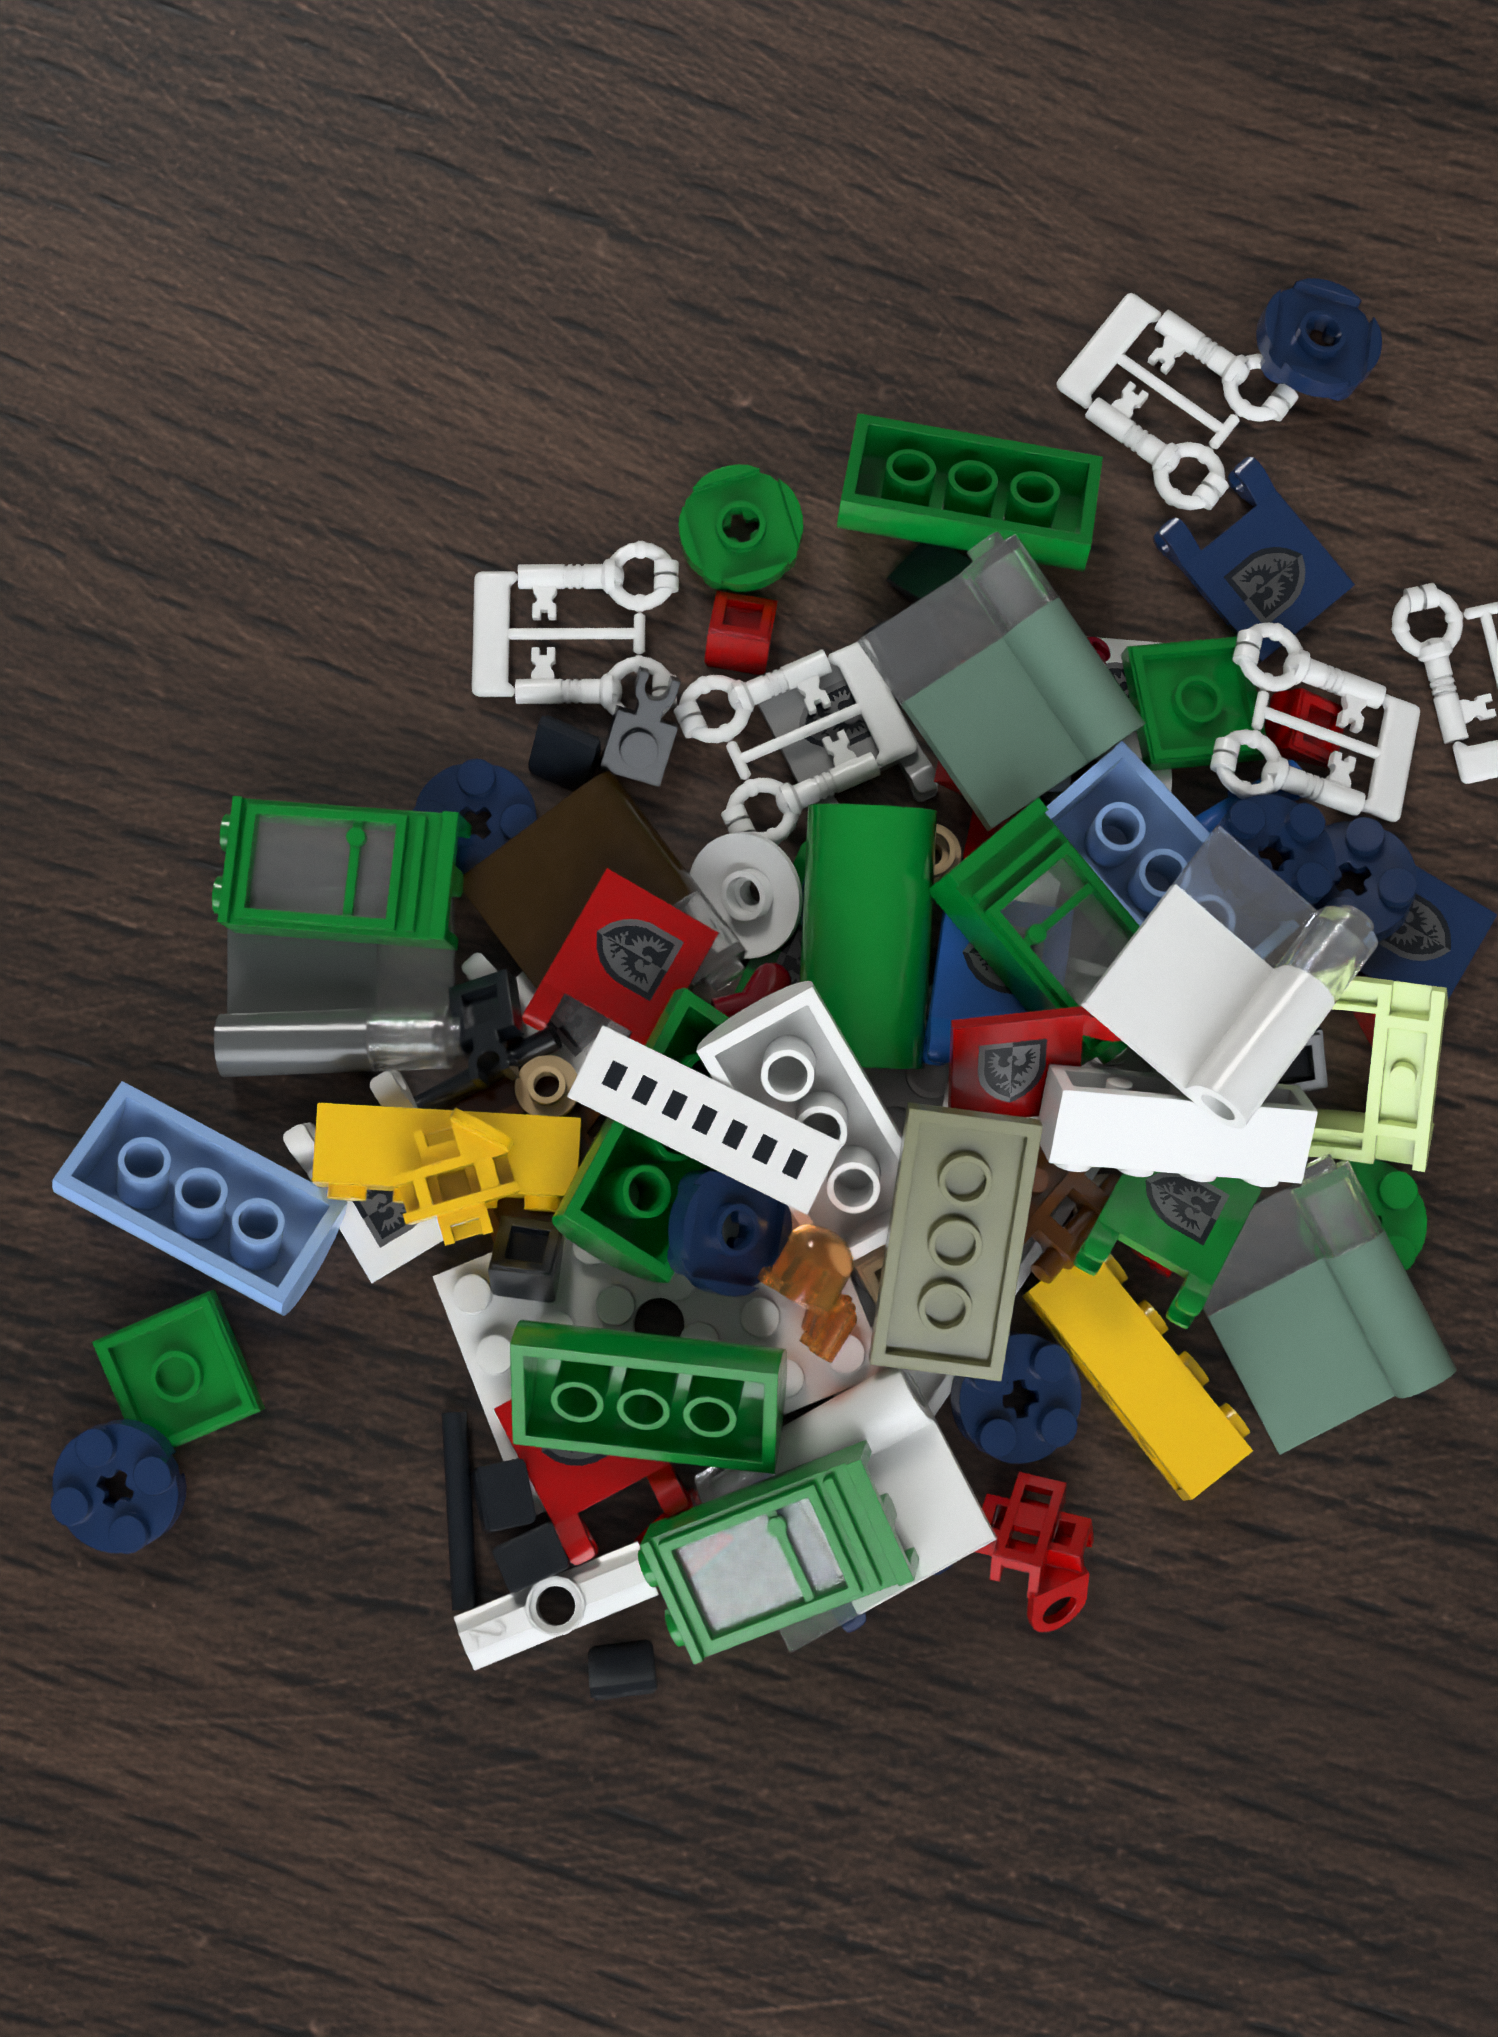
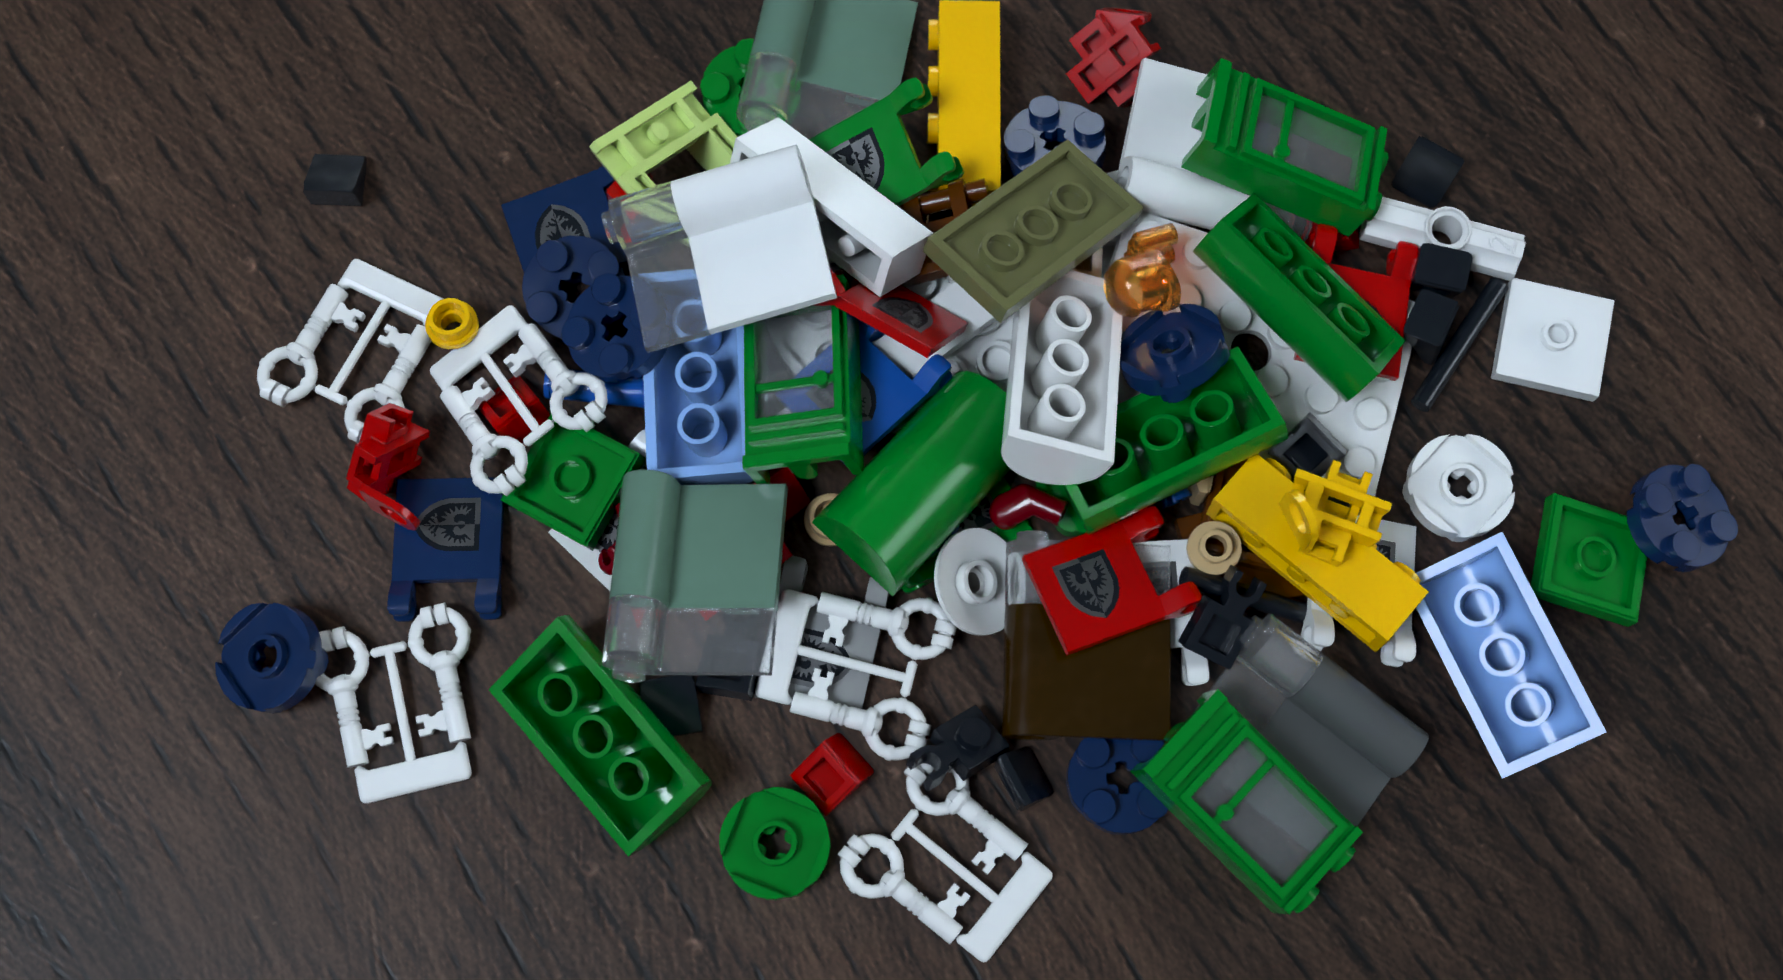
camera: 140 degrees left, 5 degrees down
(333, 1324) = (1453, 516): none -> white plate
(369, 1589) = (1552, 339): none -> white plate
(704, 1119) = (1142, 419): white sticker -> none
(1384, 589) = (383, 453): none -> red piece
(1450, 750) = (447, 312): none -> yellow plate

